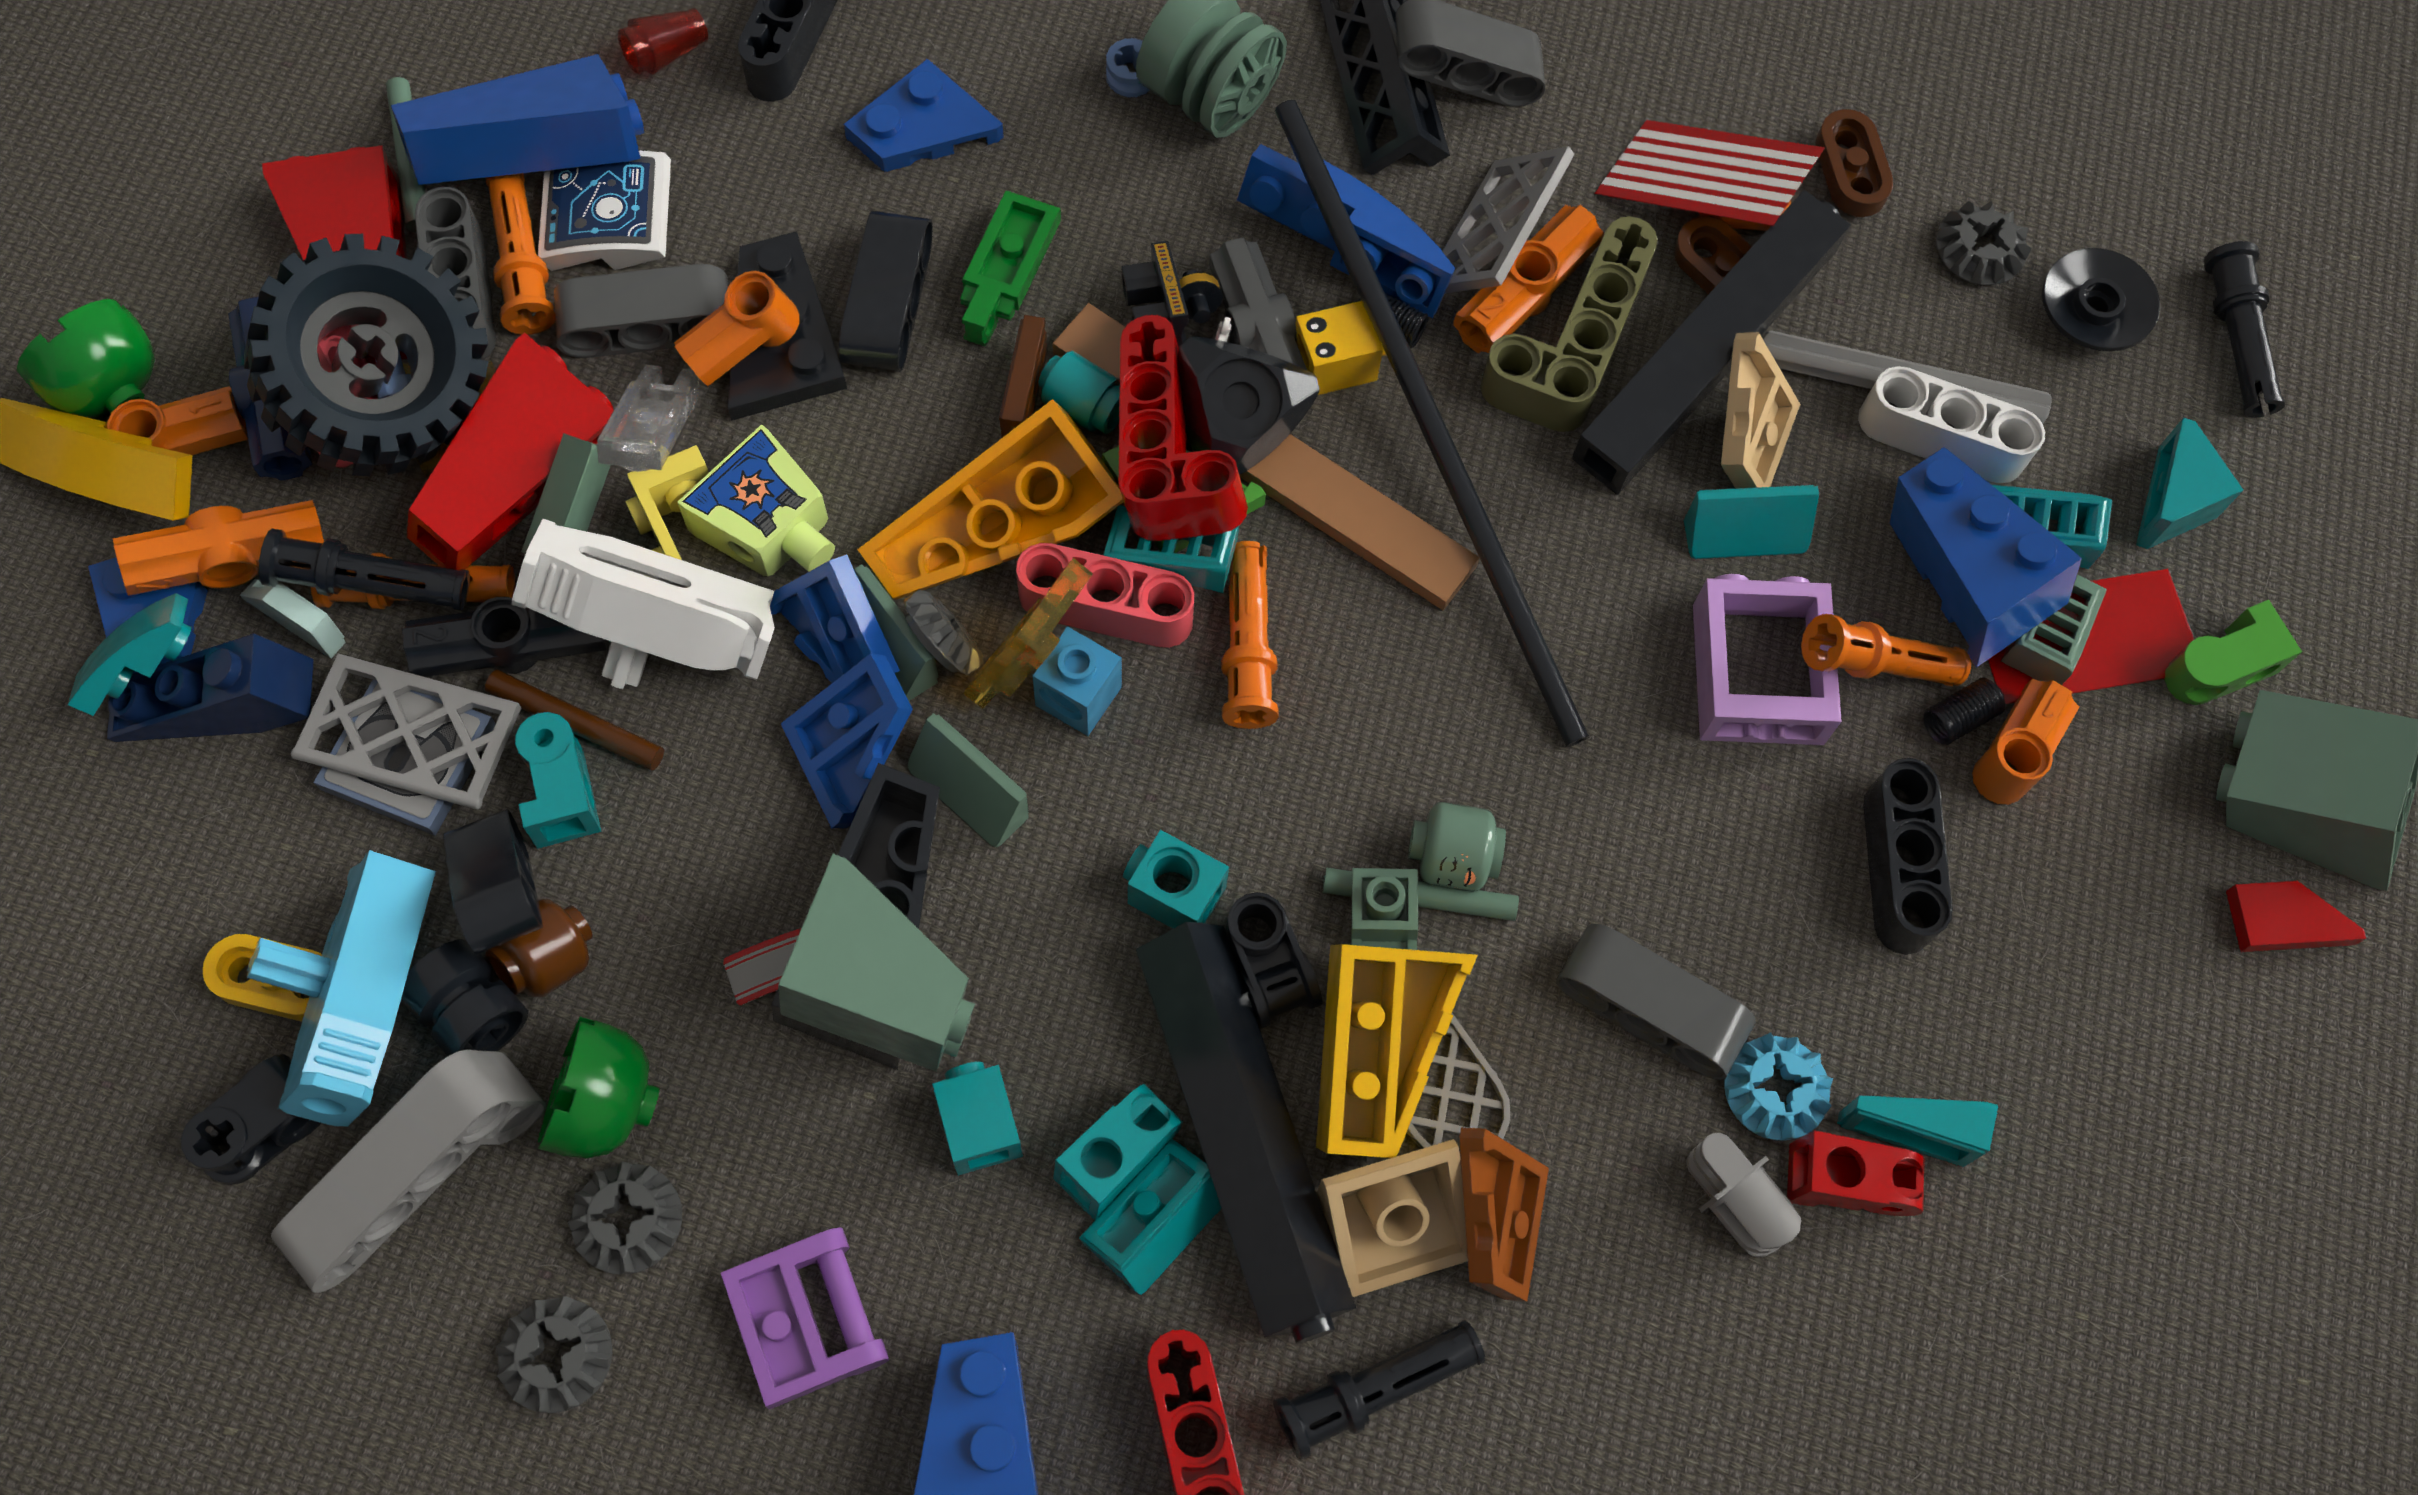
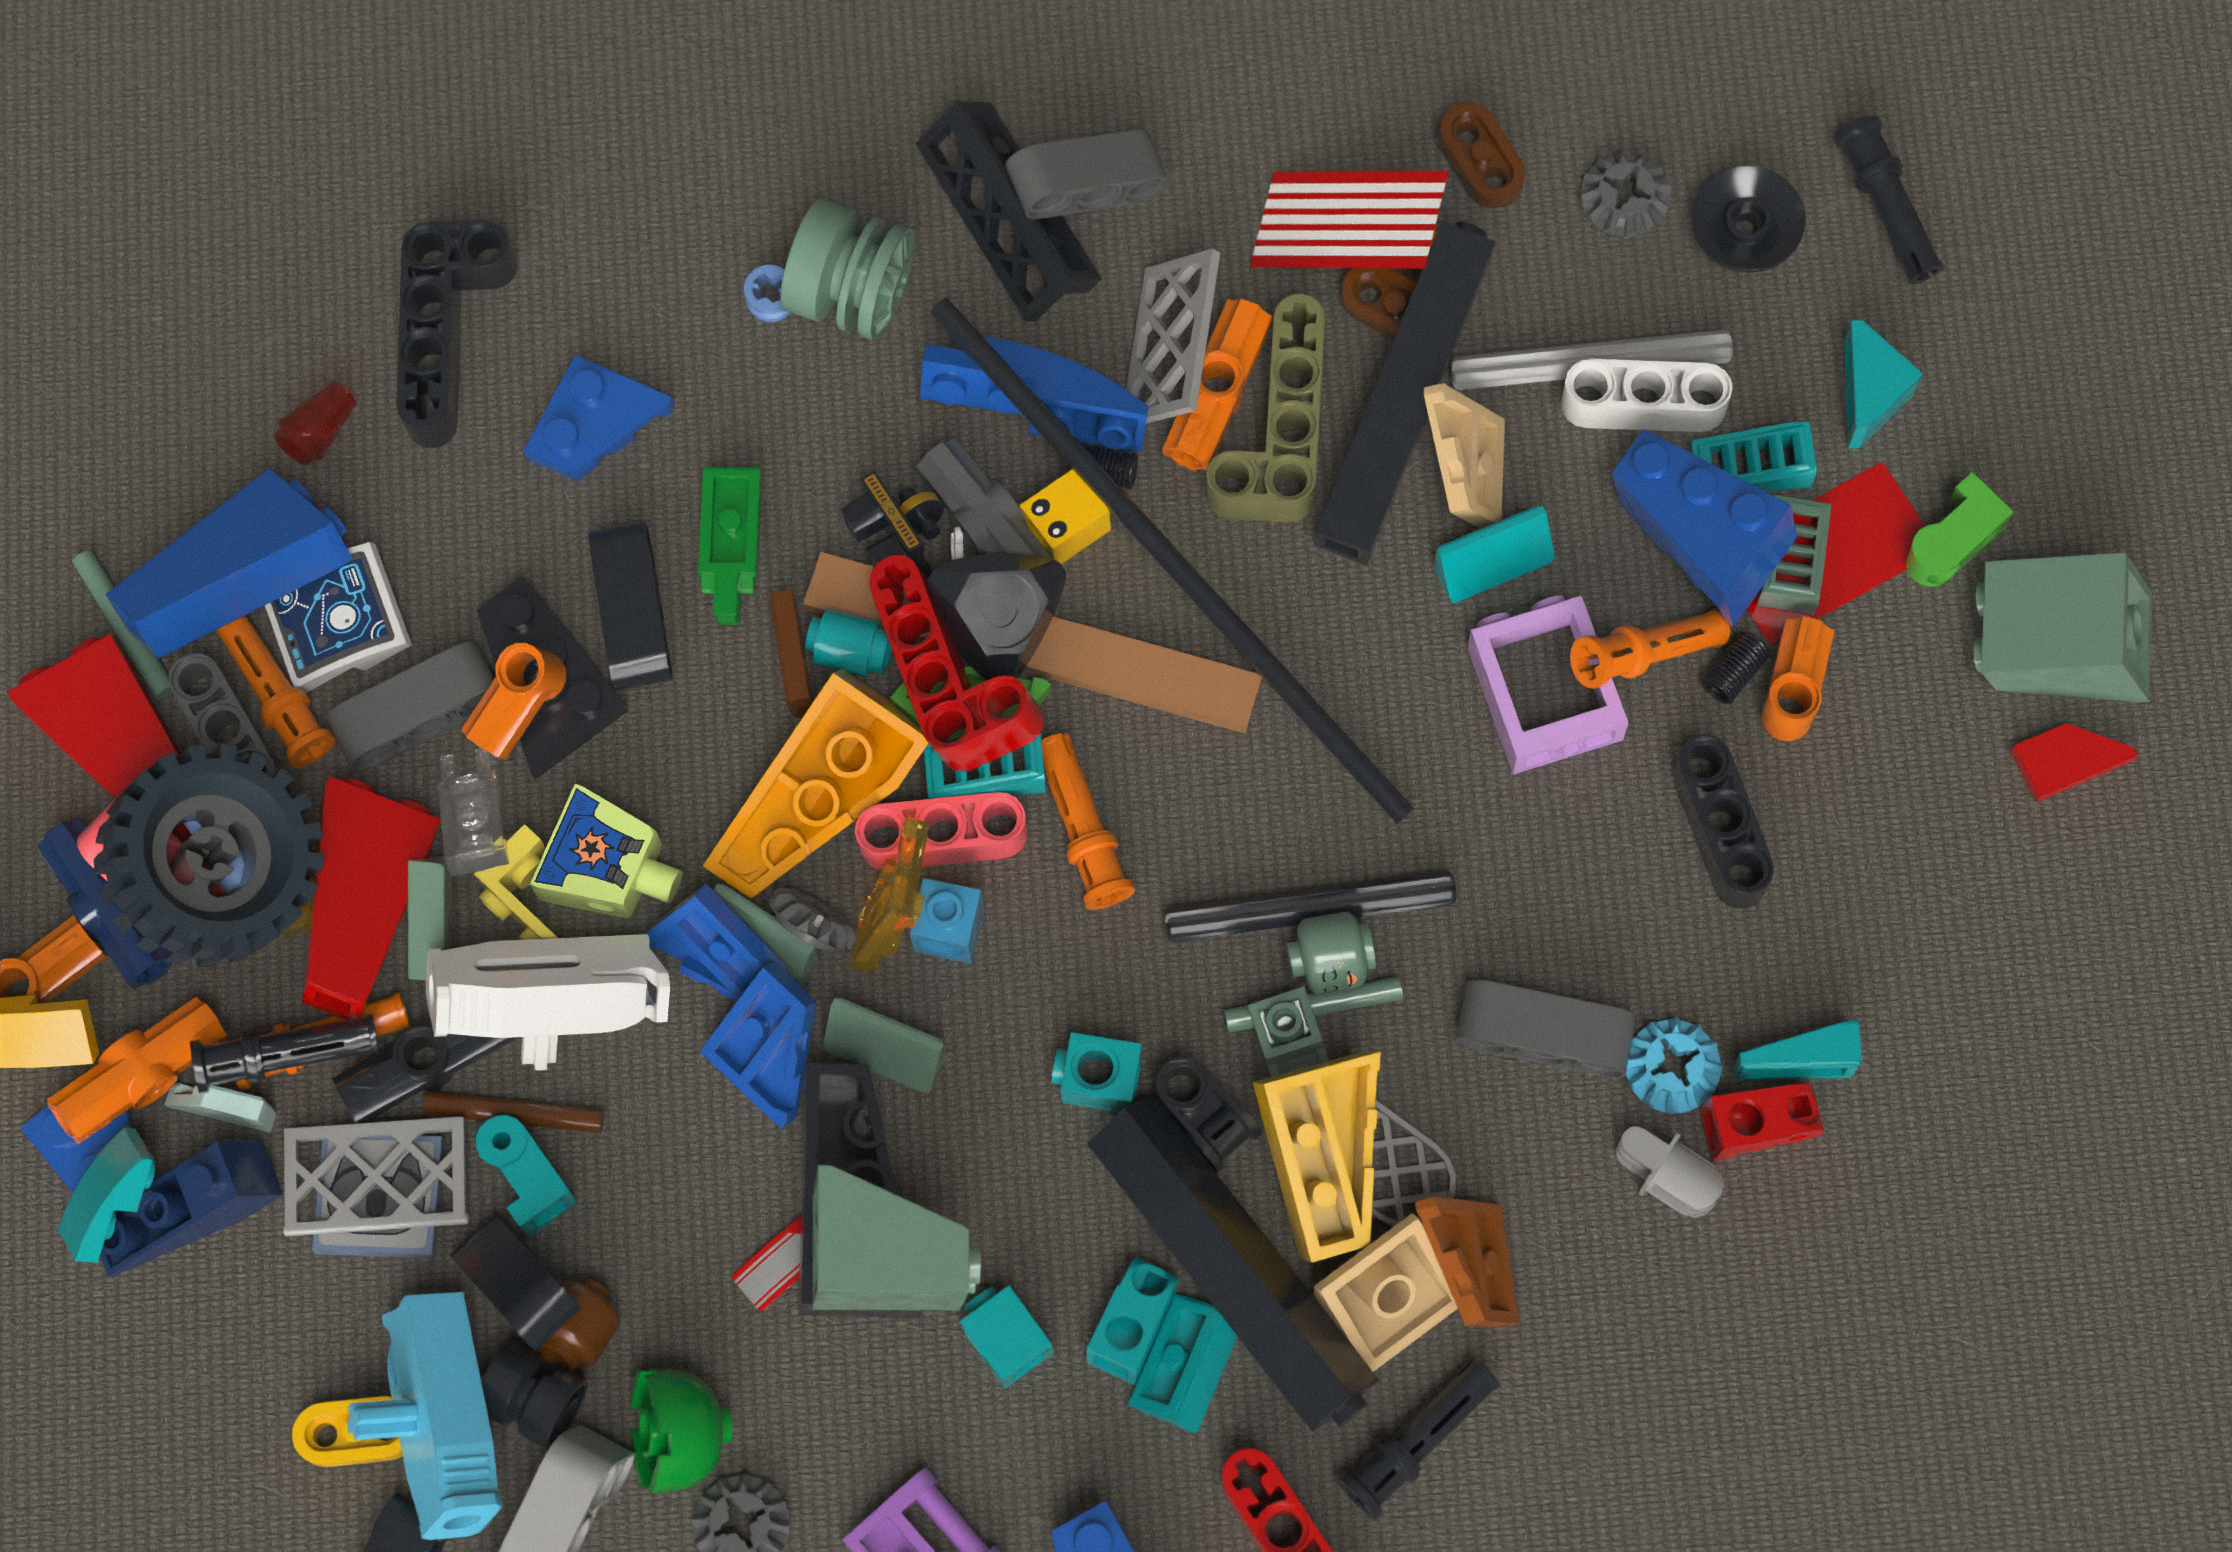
camera: 10 degrees left, 5 degrees up
(1425, 789) = (1292, 907): none -> black axle

